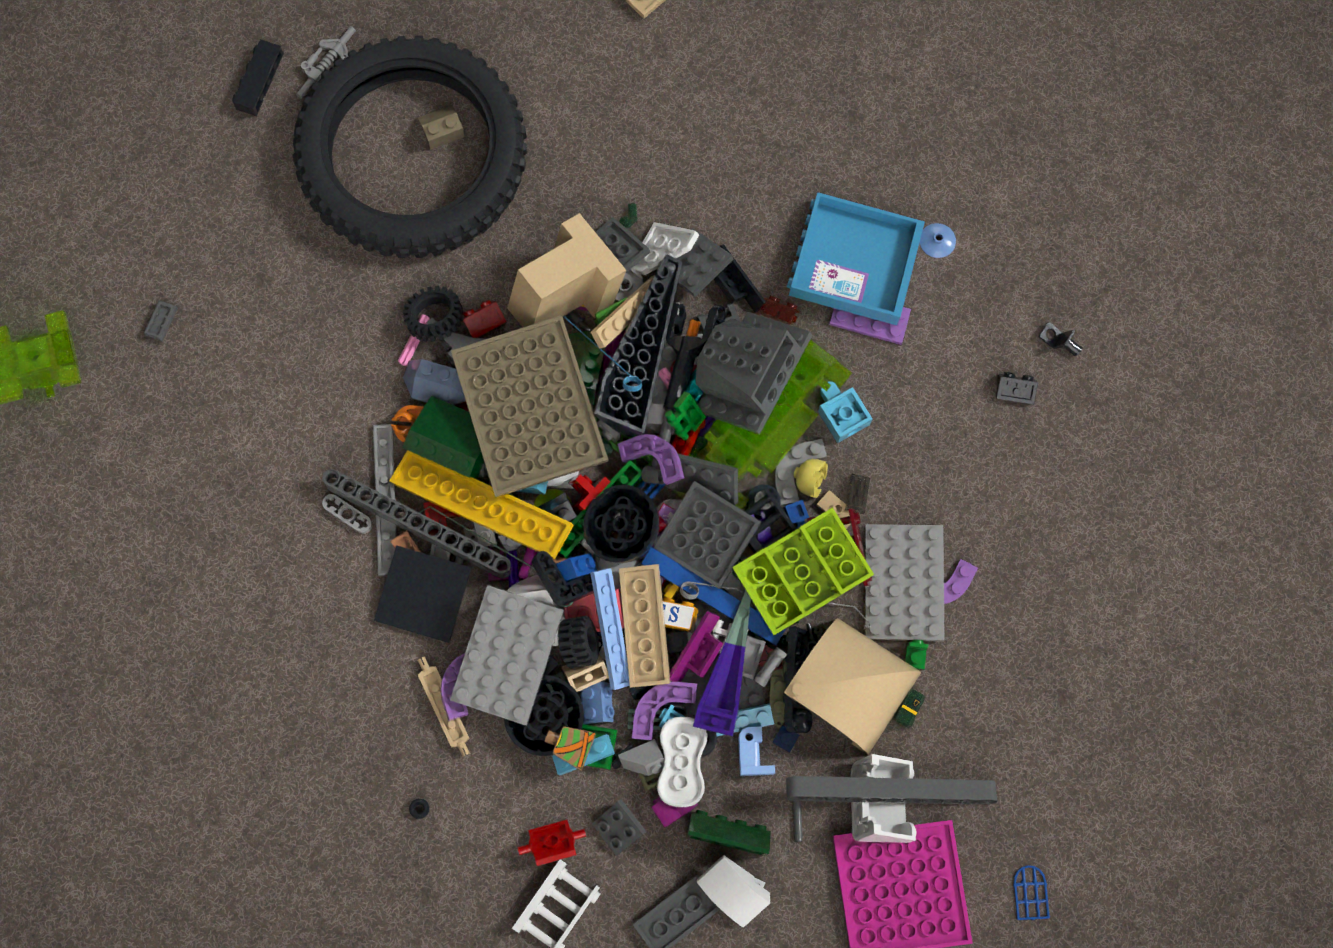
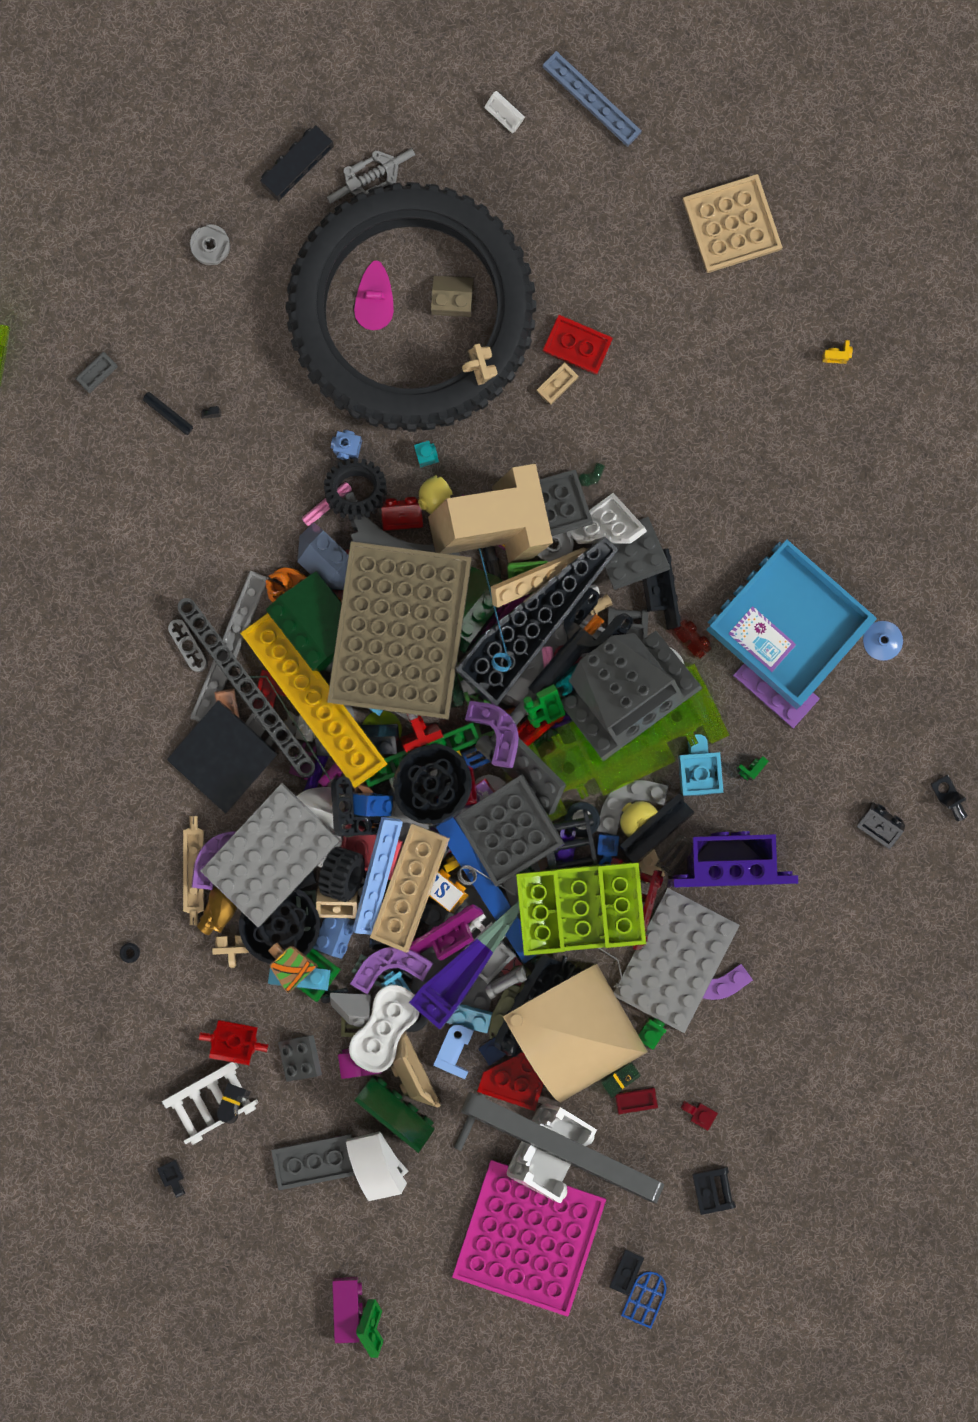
camera: 30 degrees right, 10 degrees up
(219, 182) = (206, 234): none -> light grey plate
(239, 327) = (167, 413): none -> black axle
(278, 309) = (213, 412): none -> black tile
(375, 157) = (374, 298): none -> dark pink shield
(408, 282) = (349, 451): none -> medium blue brick
(480, 260) = (426, 453): none -> teal brick
(482, 731) = (217, 912): none -> pearl gold animal
(487, 154) = (478, 365): none -> tan hips
(501, 286) = (433, 493): none -> light yellow cylinder
(501, 762) = (222, 947): none -> tan hips
(563, 156) = (557, 383): none -> tan plate
(565, 118) = (577, 344): none -> red plate
(576, 896) = (230, 1103): none -> black leg
(691, 313) = (603, 603): none -> tan pin
(727, 793) = (412, 1074): none -> tan wedge
(783, 34) = (834, 355): none -> yellow bracket
(820, 753) = (513, 1082): none -> red plate
(831, 477) = (656, 829): none -> black fence
(886, 392) = (756, 767): none -> green bracket
(913, 469) = (733, 862): none -> dark purple wedge
(932, 721) = (636, 1101): none -> dark red tile
(994, 705) = (701, 1115): none -> dark red plate
(1002, 877) = (626, 1272): none -> black plate
(1035, 770) = (707, 1192): none -> black plate

